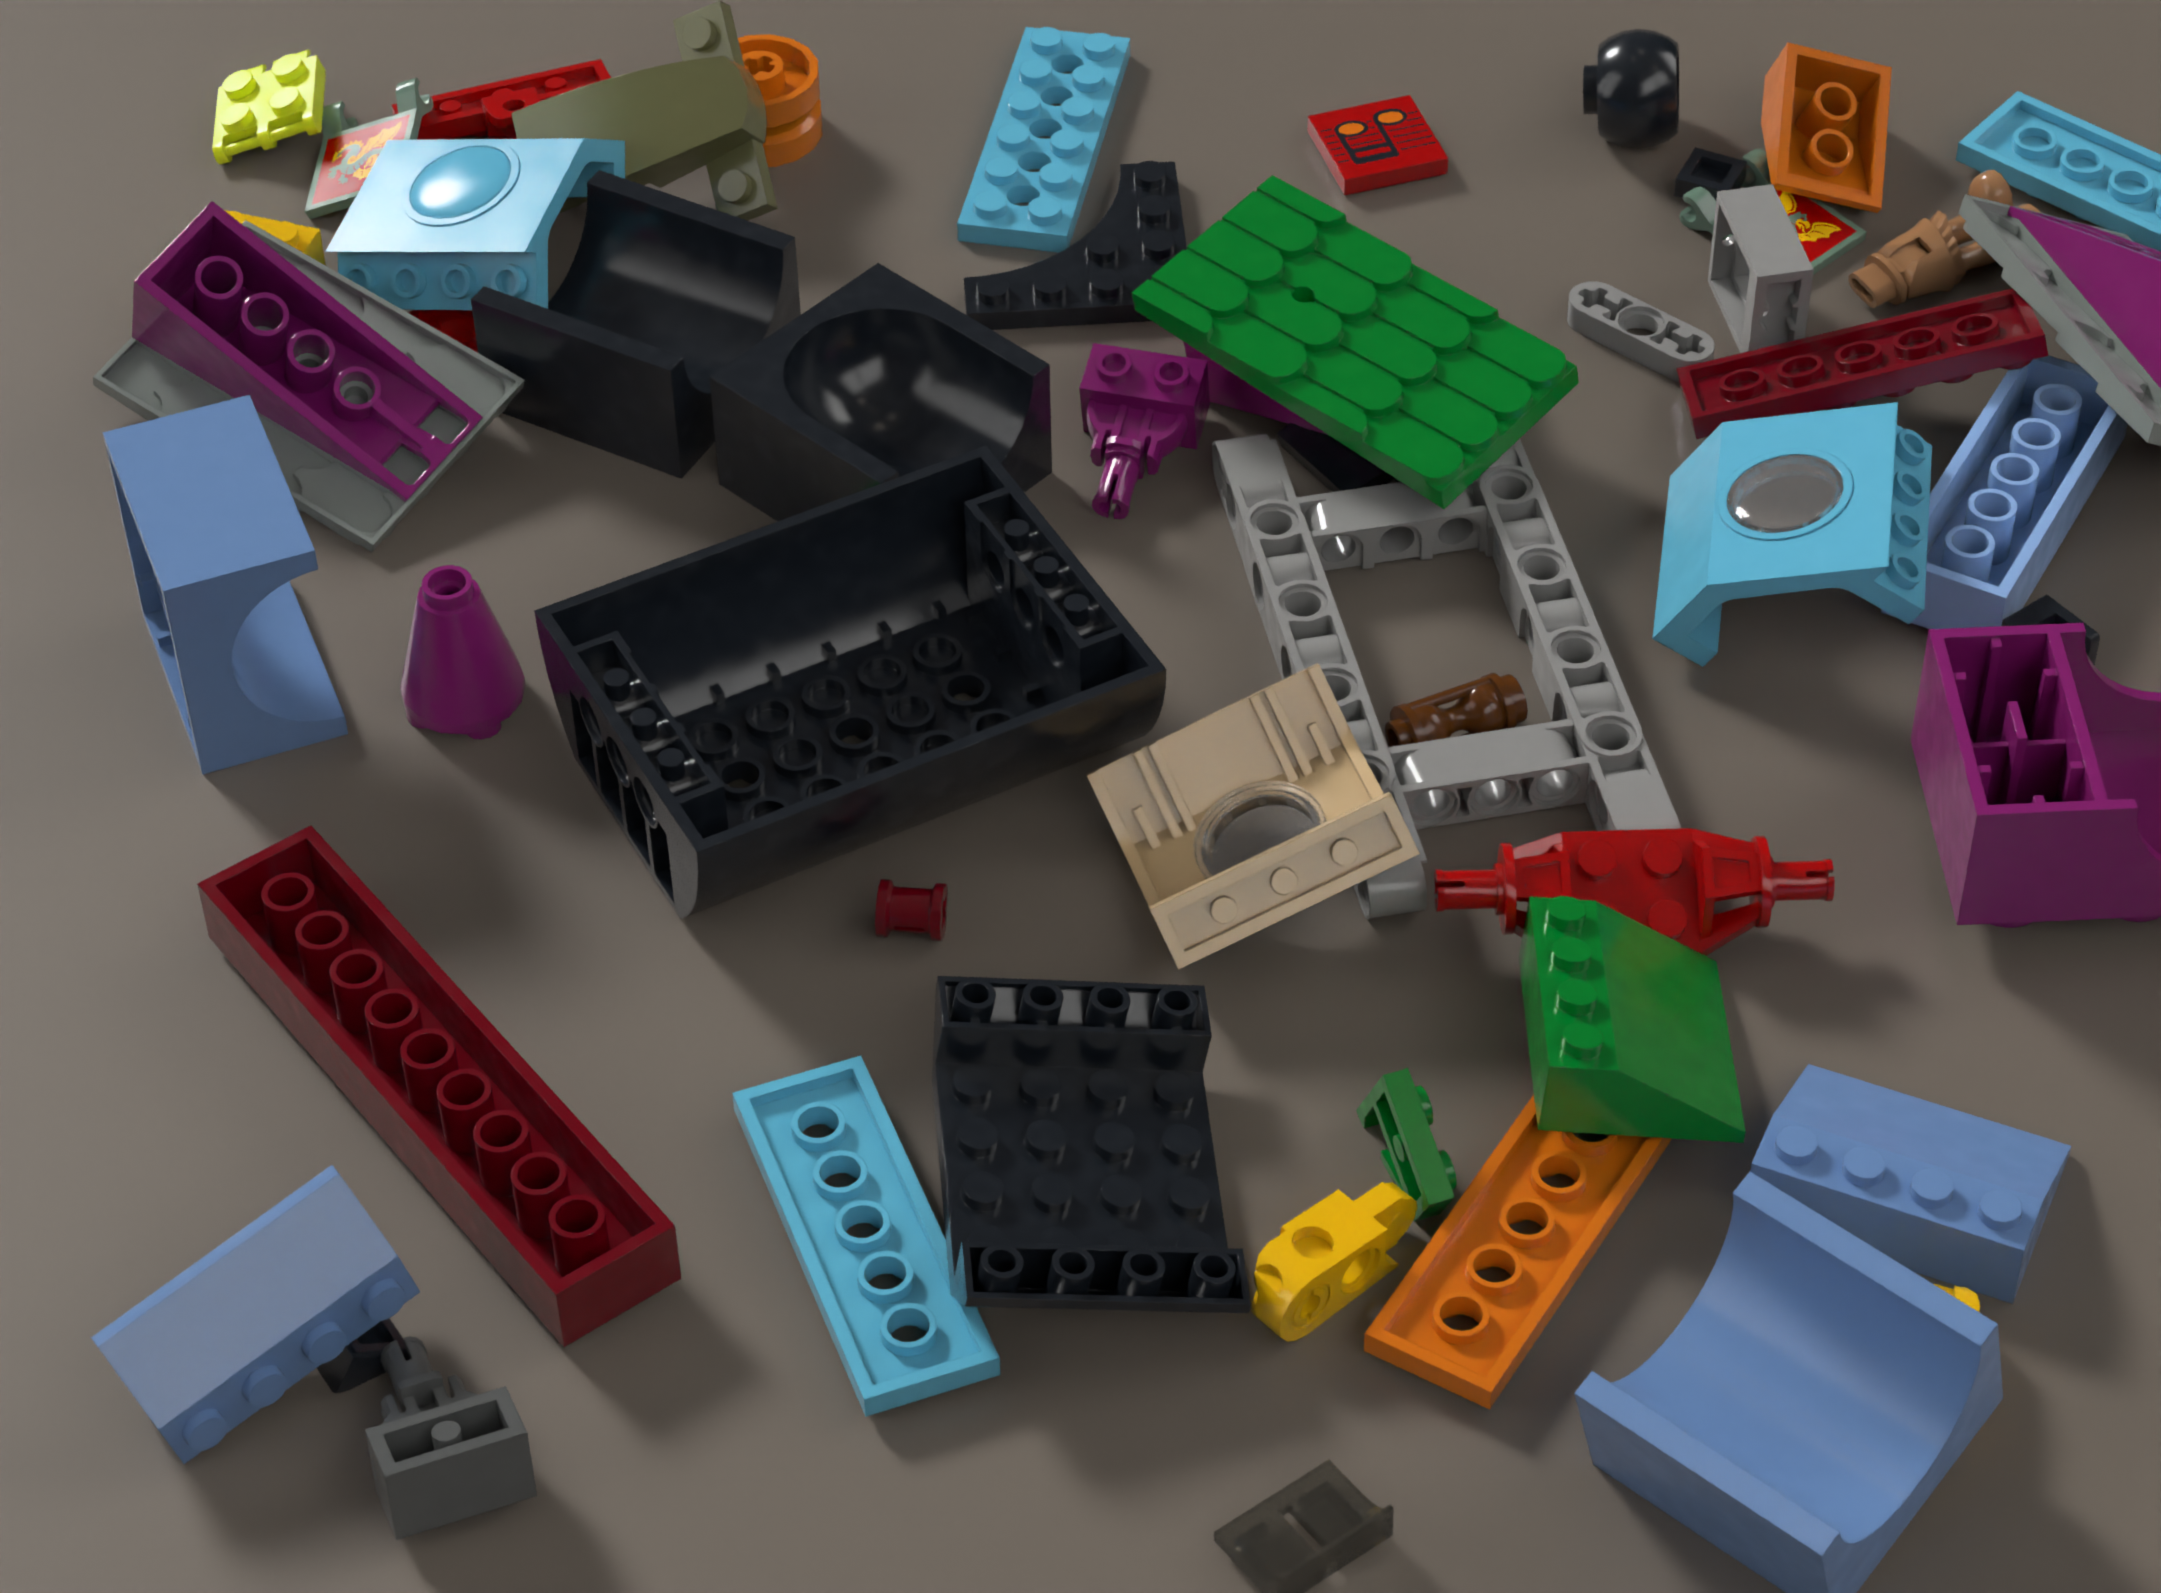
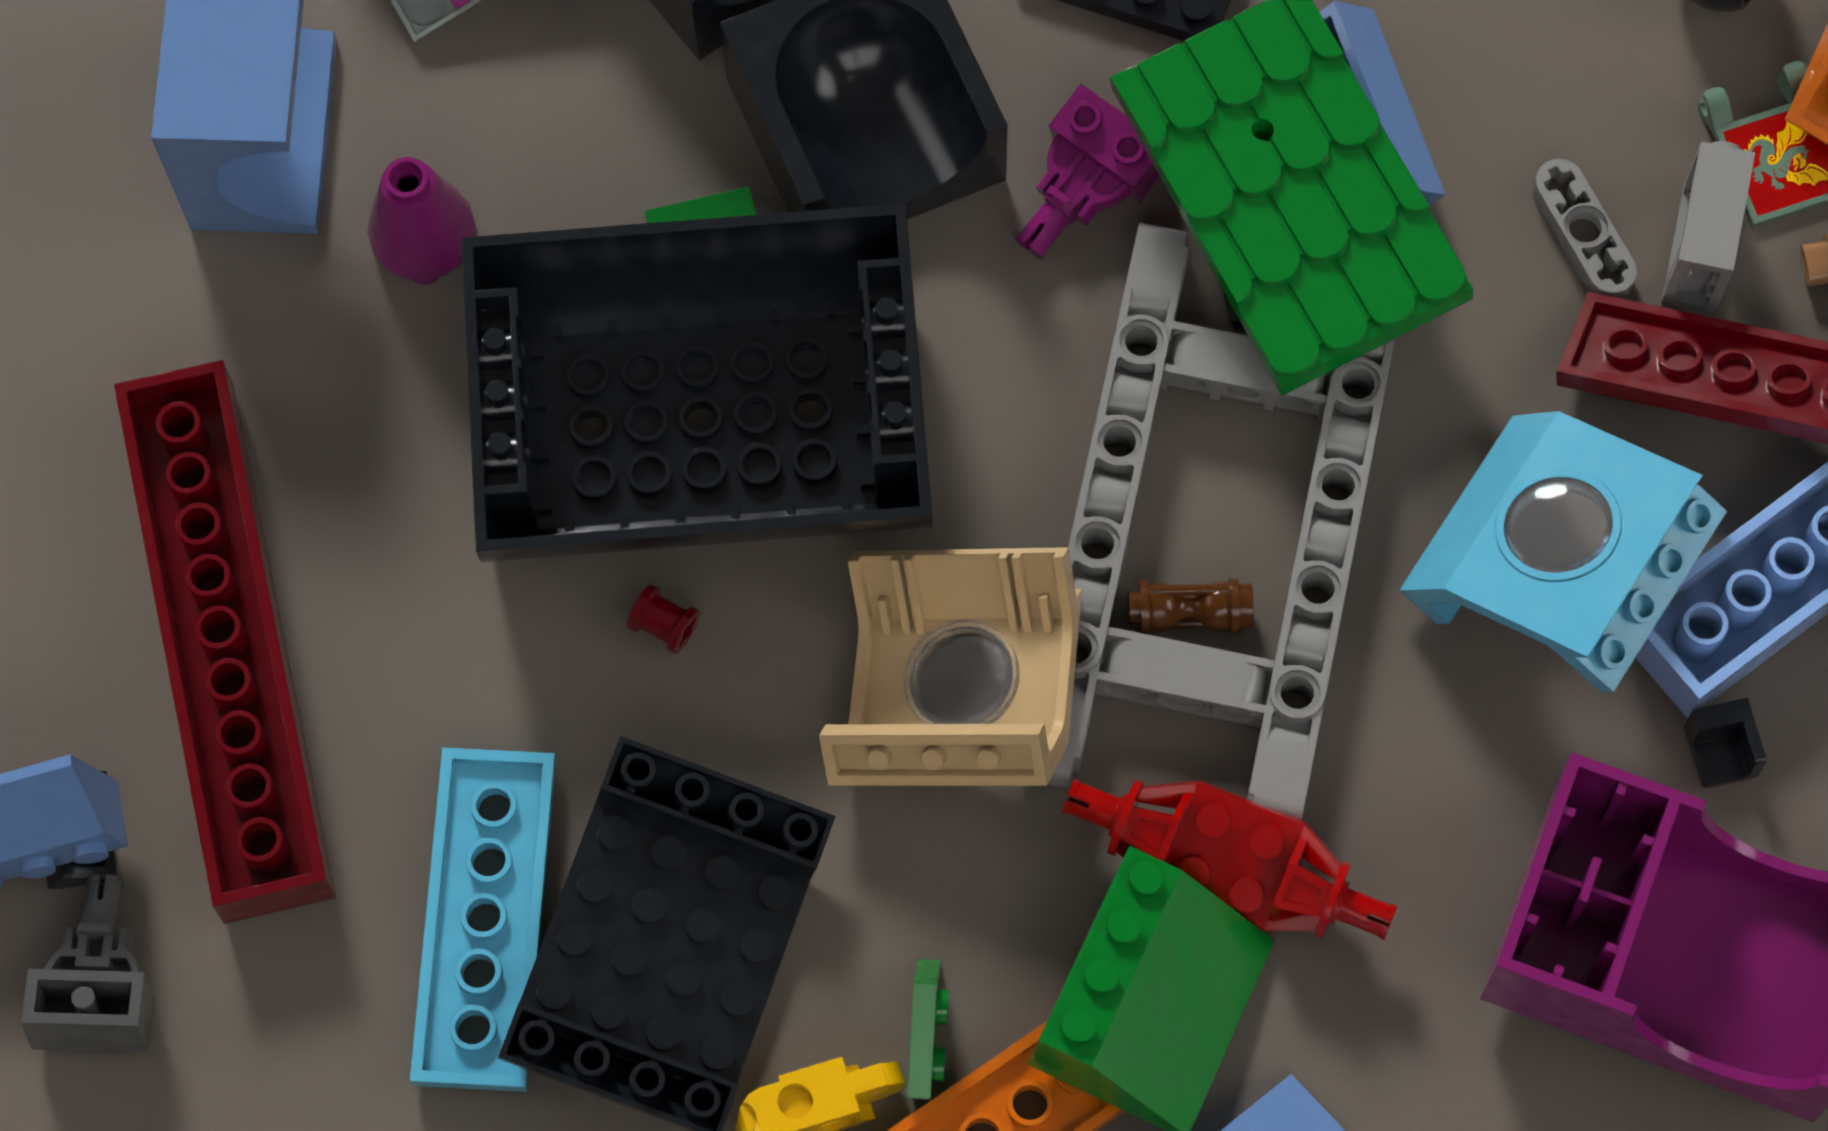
camera: 25 degrees right, 25 degrees up
(1710, 171) = (1744, 75): black plate -> none

